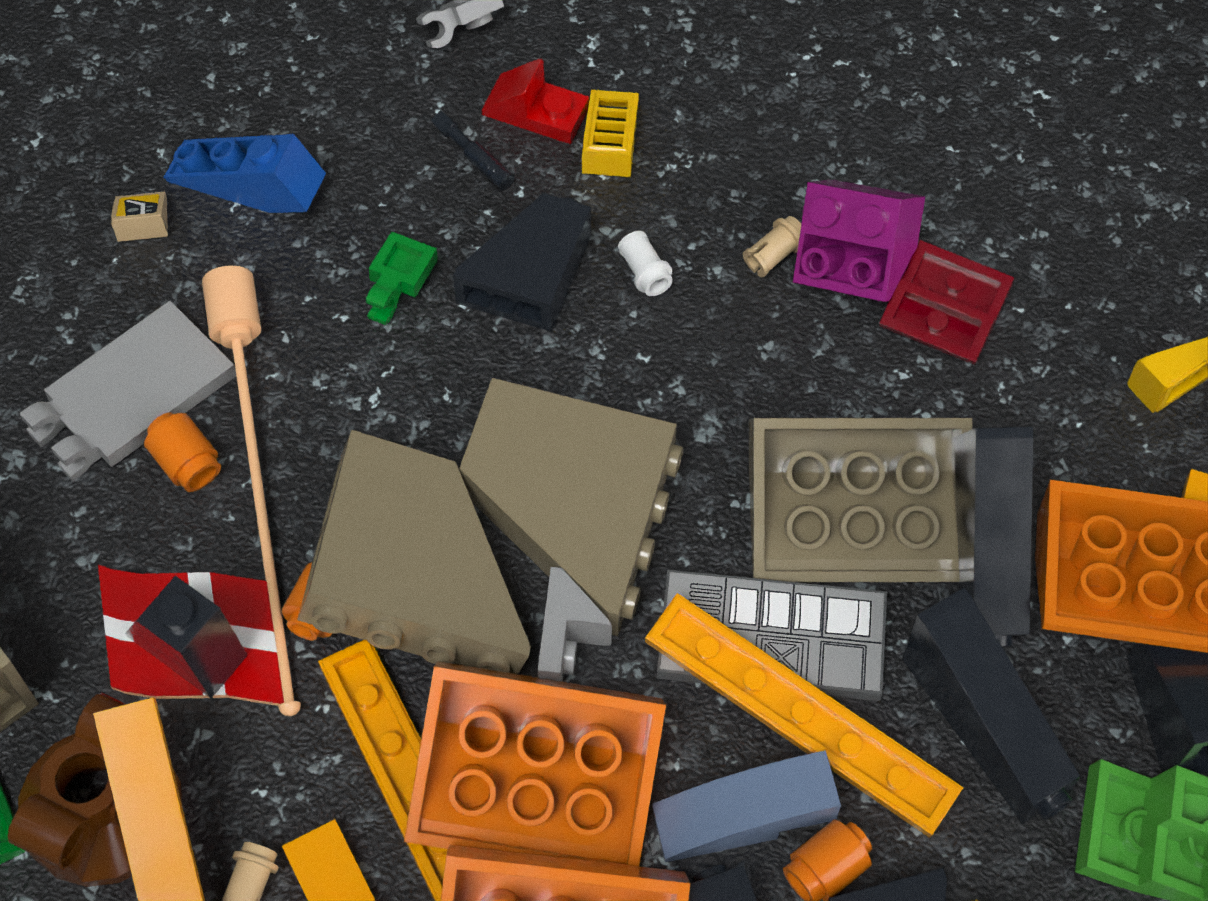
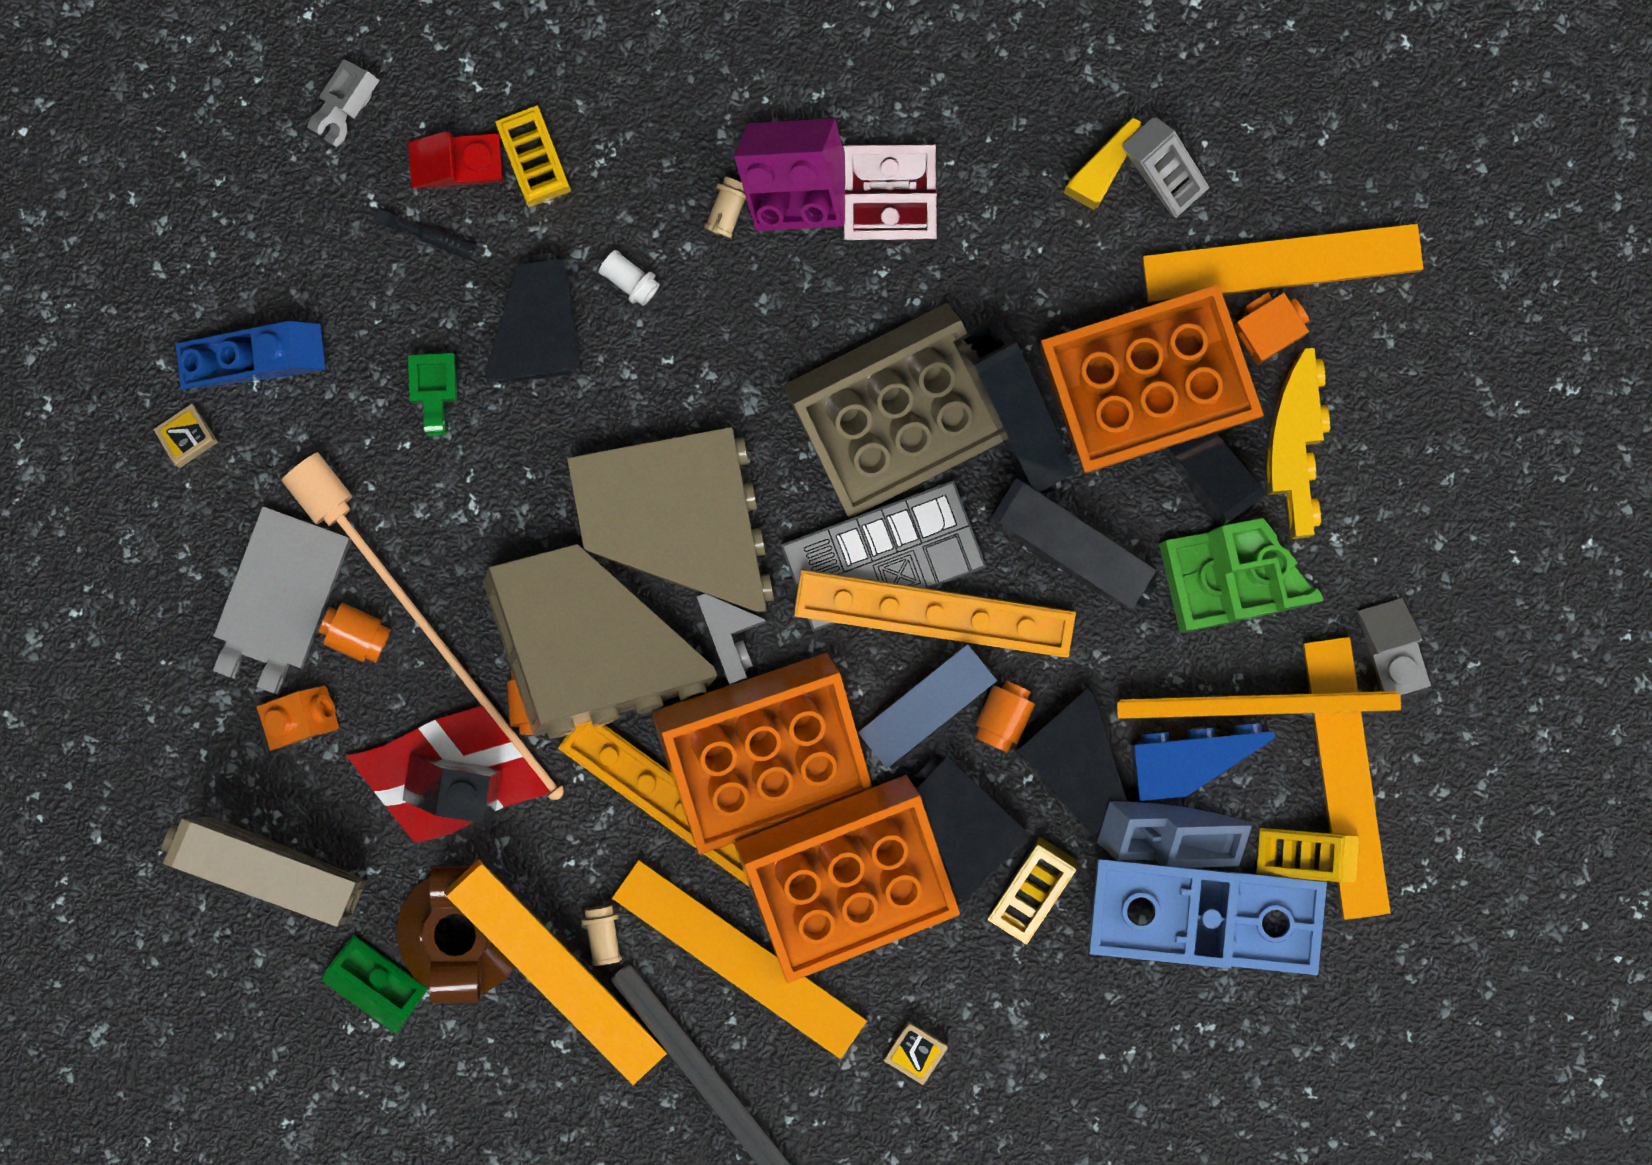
camera: 25 degrees left, 25 degrees up
(74, 501) = (298, 717): none -> orange bracket

